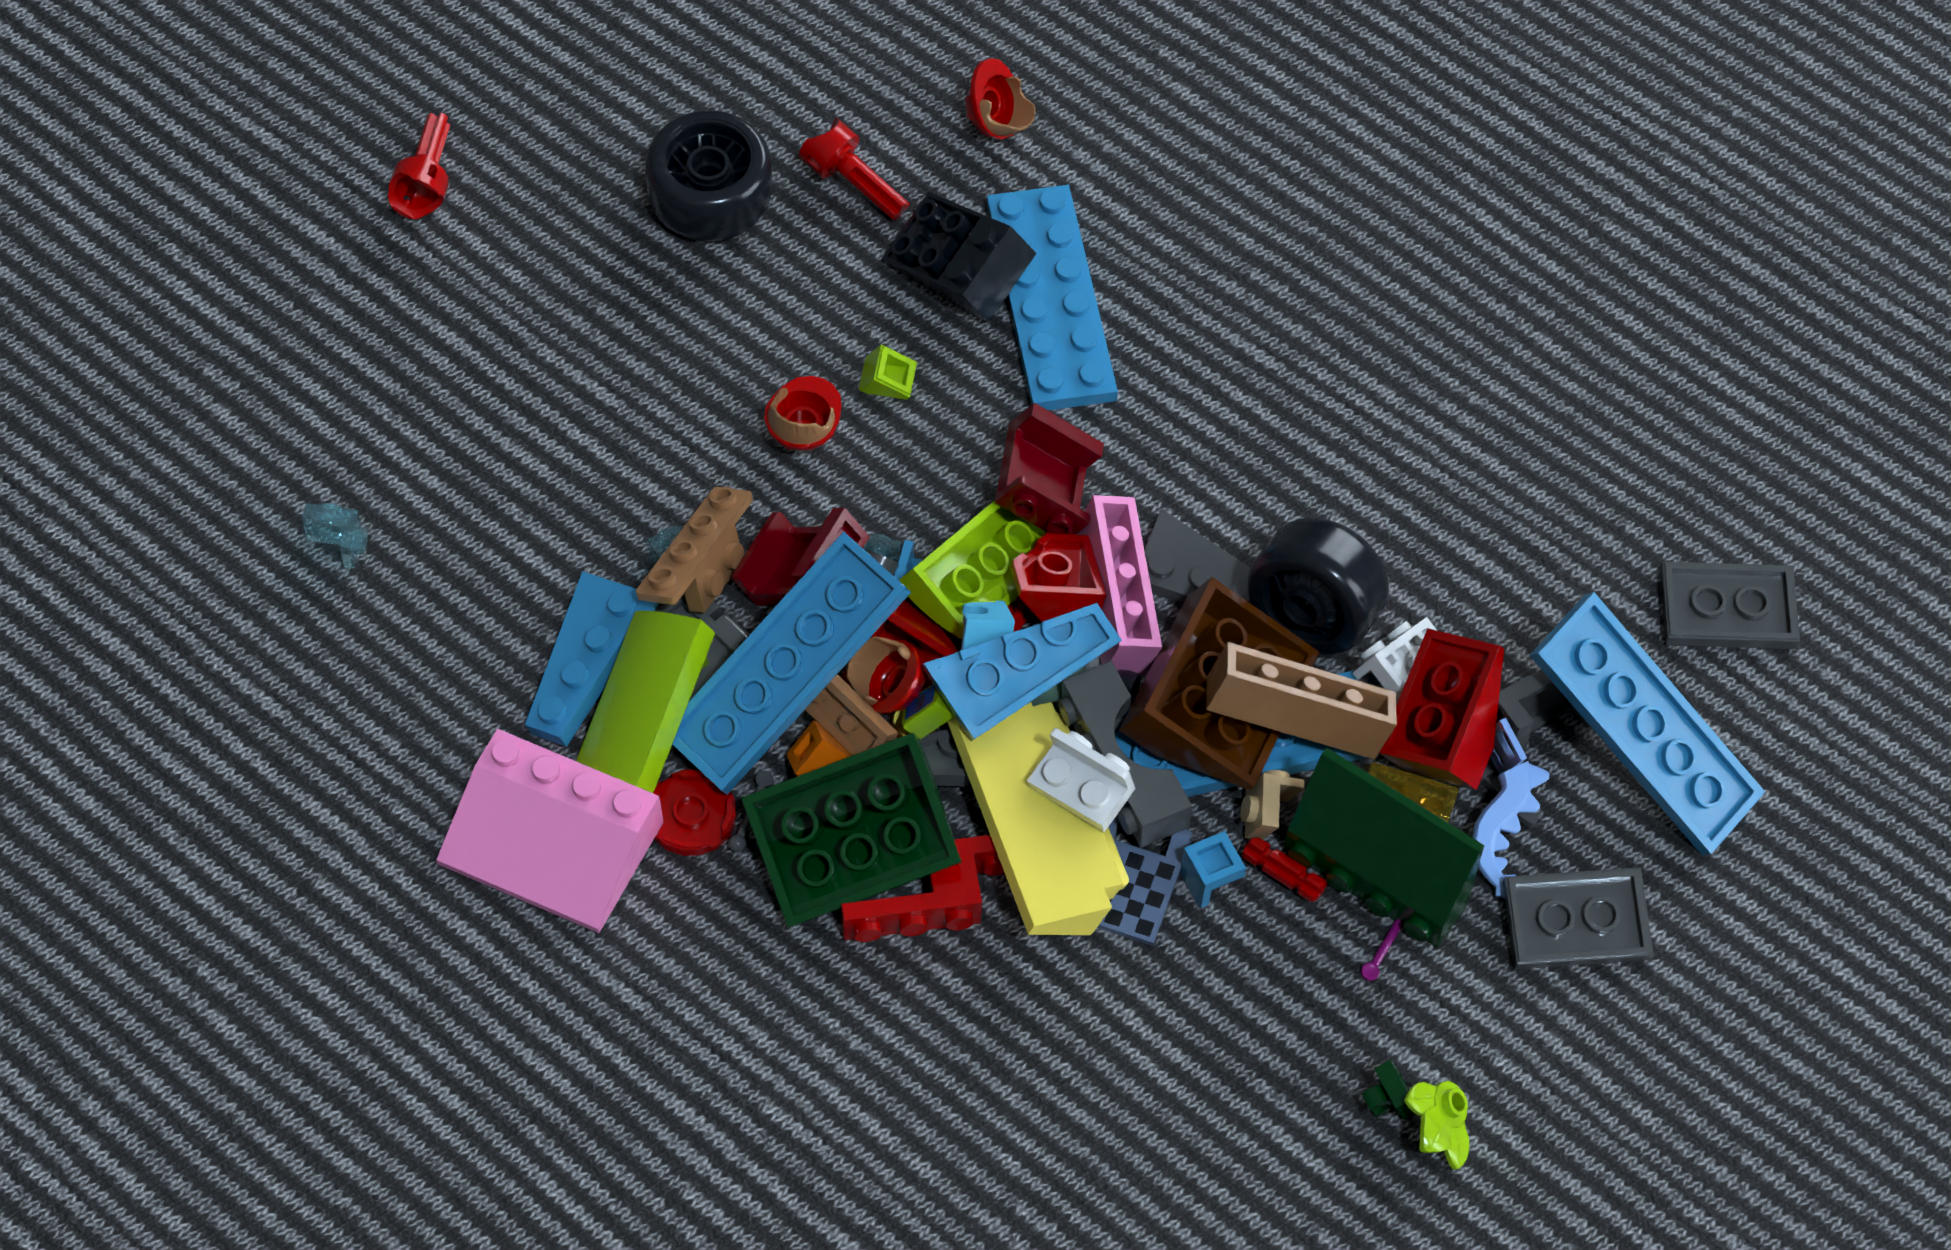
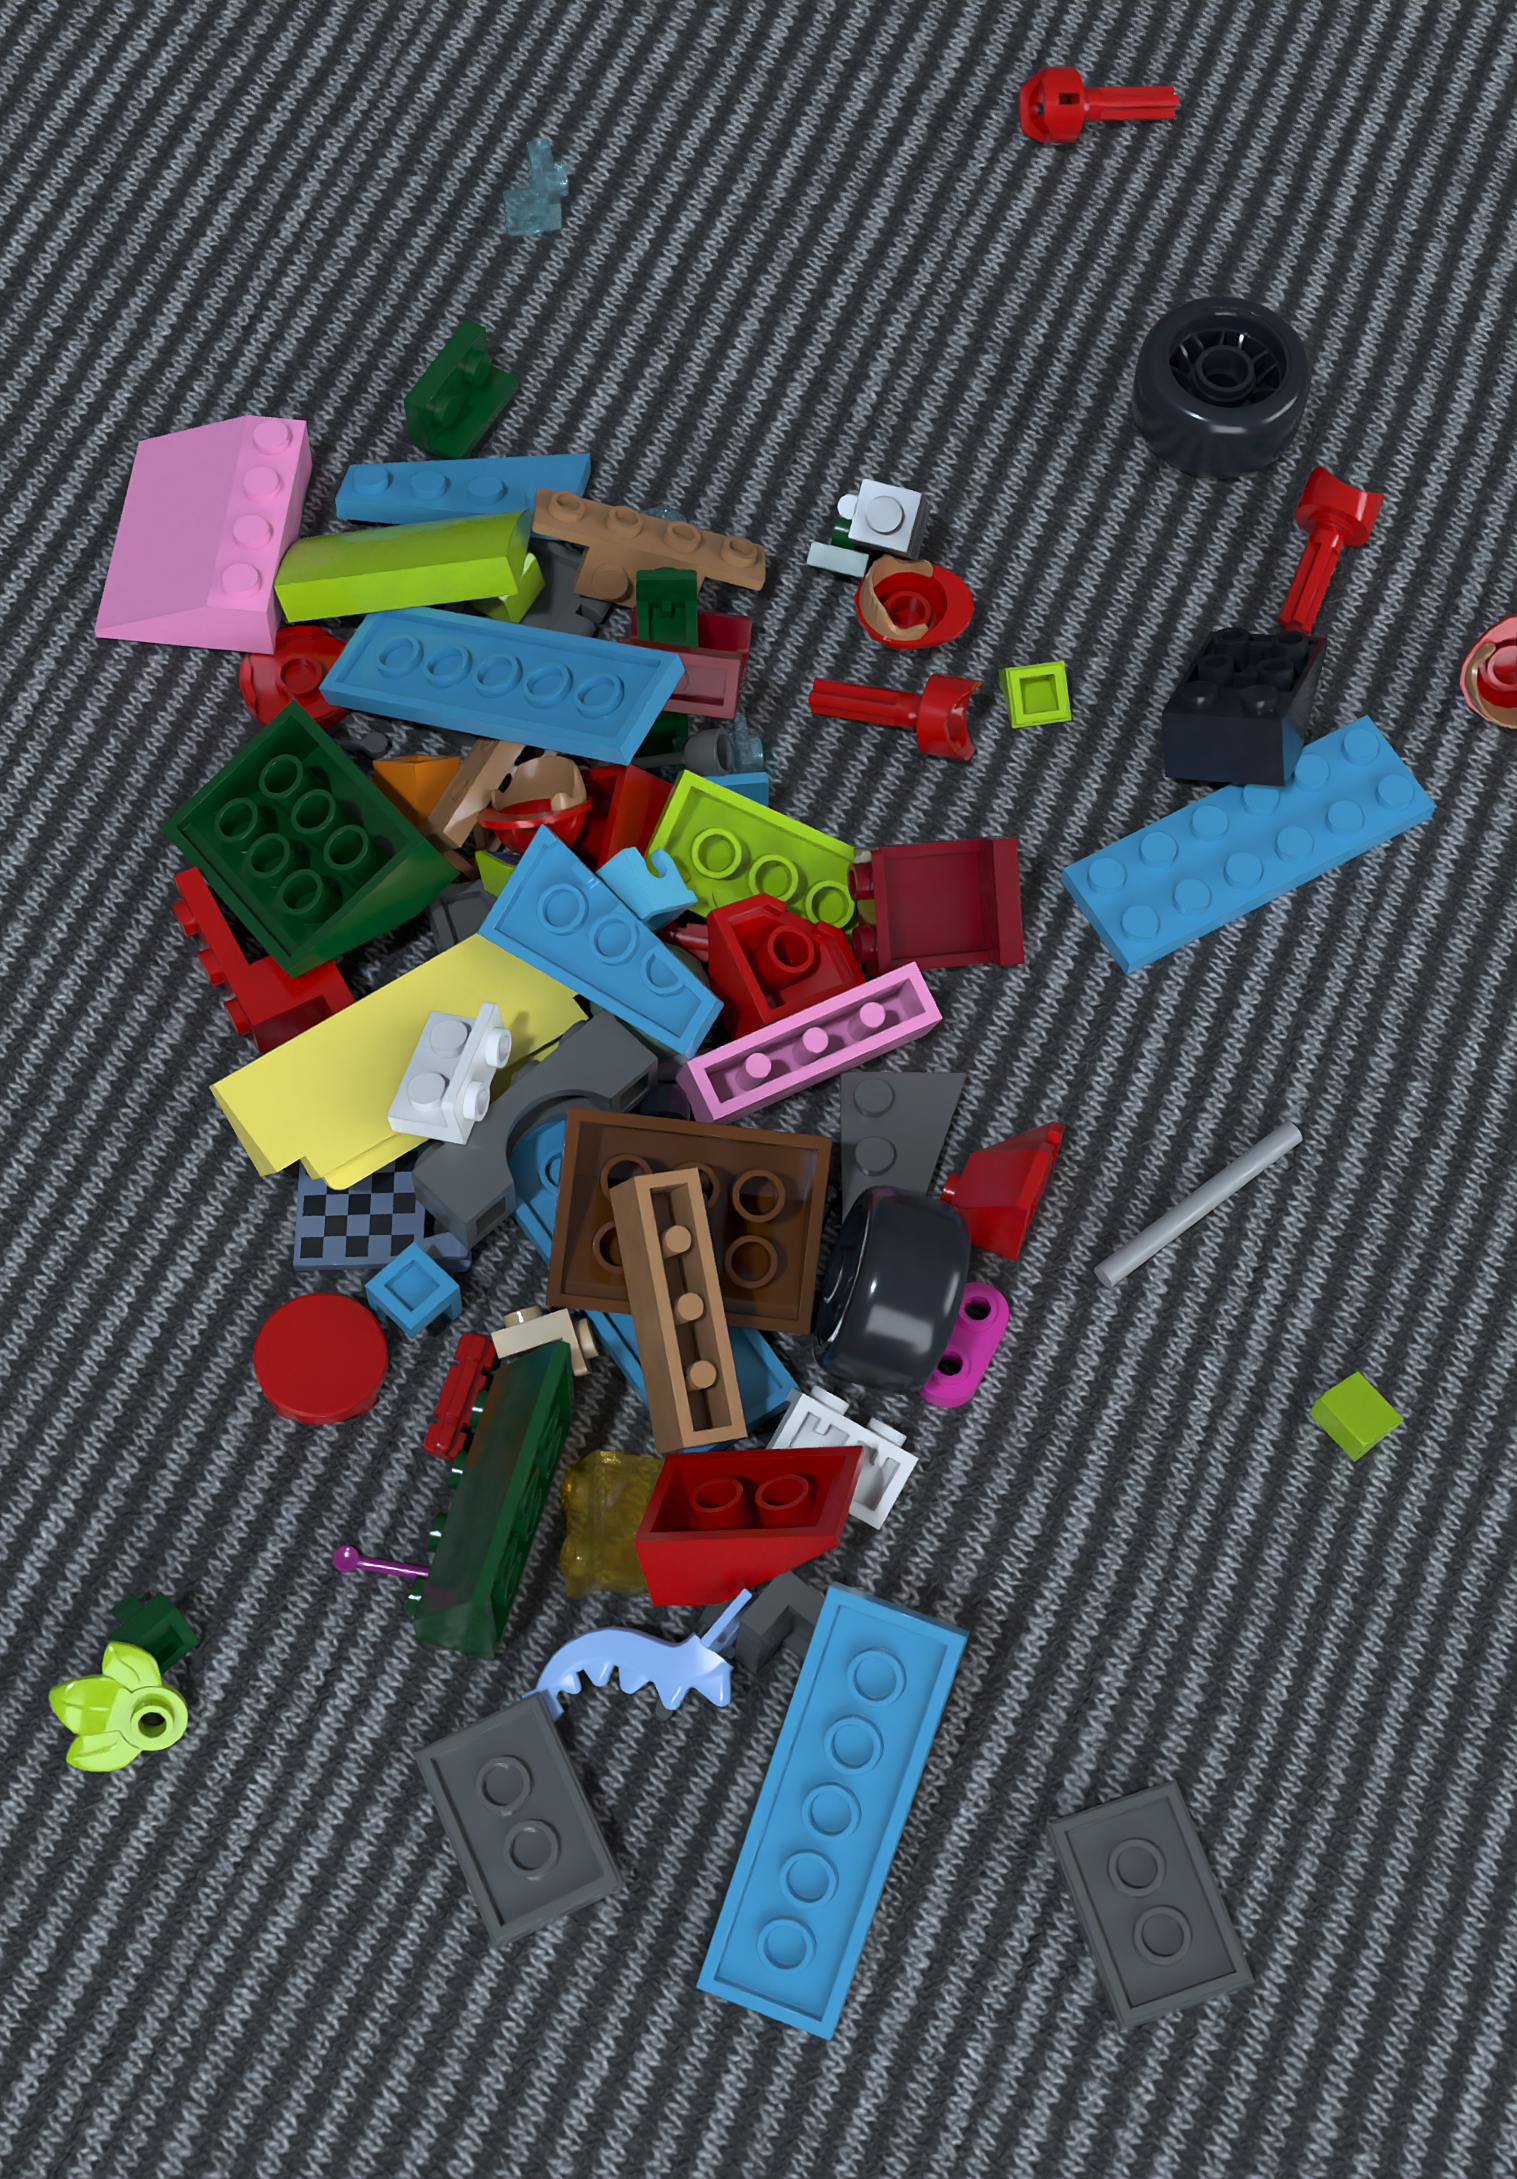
camera: 70 degrees right, 5 degrees up
(503, 634) = (458, 396): none -> dark green bracket
(740, 442) = (841, 555): none -> tile
(744, 399) = (886, 519): none -> brick
(765, 555) = (667, 606): none -> dark green bracket
(893, 430) = (935, 714): none -> red piece
(1231, 941) = (321, 1359): none -> red tile
(1257, 504) = (1004, 1188): none -> red slope
(1295, 418) = (1198, 1204): none -> light grey bar
(1465, 387) = (1355, 1415): none -> lime slope

